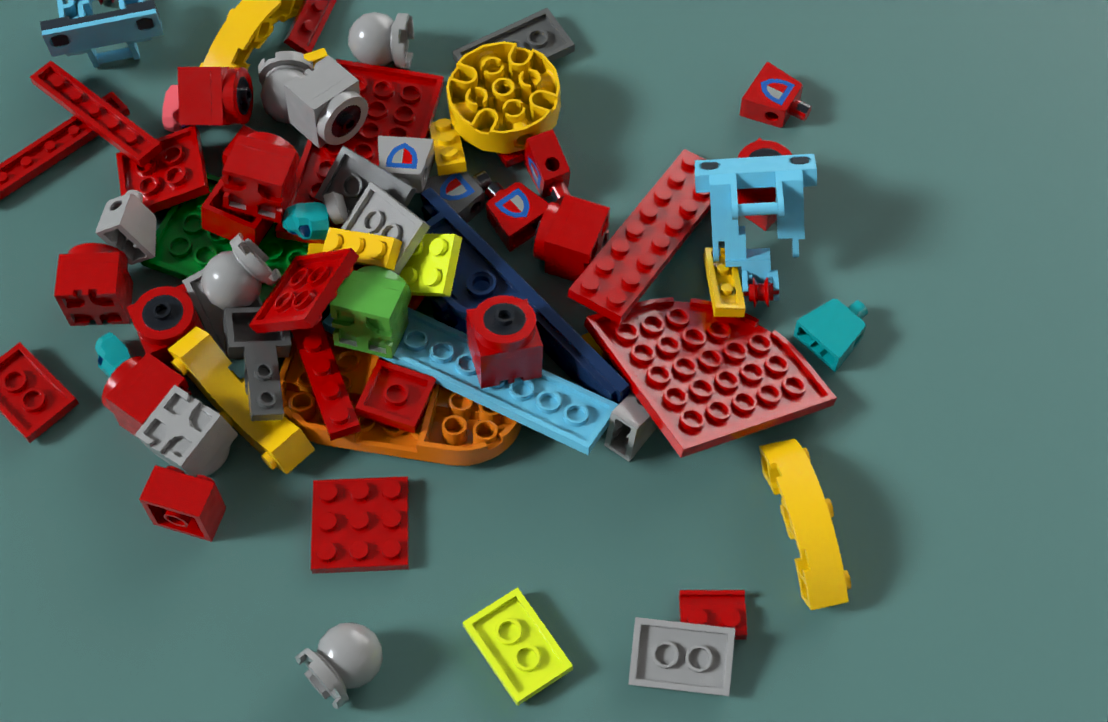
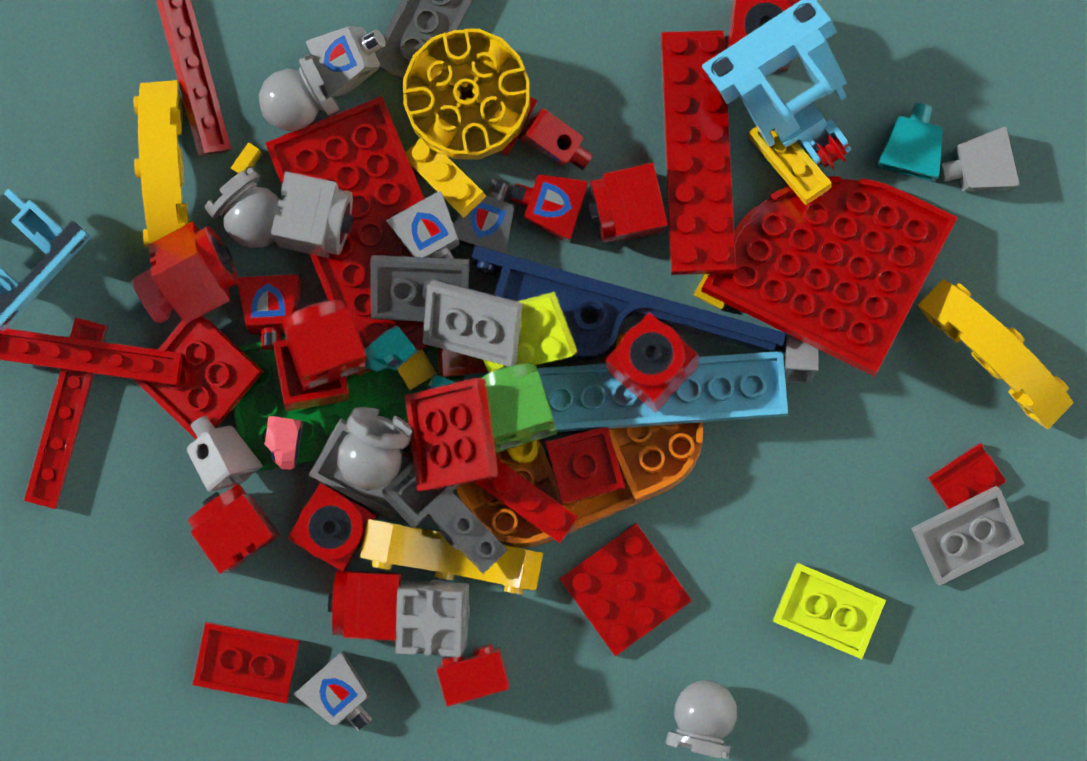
camera: 35 degrees left, 25 degrees up
(71, 455) = (337, 693): none -> light grey torso
(111, 353) = (299, 581): teal rock -> none
(185, 246) = (283, 440): none -> coral rock
(336, 207) = (406, 323): light grey tile -> none
(358, 362) = (524, 453): none -> yellow tile
(371, 248) = (465, 355): yellow plate -> none
(436, 37) = (346, 57): none -> light grey torso
(885, 375) = (983, 164): none -> light grey torso

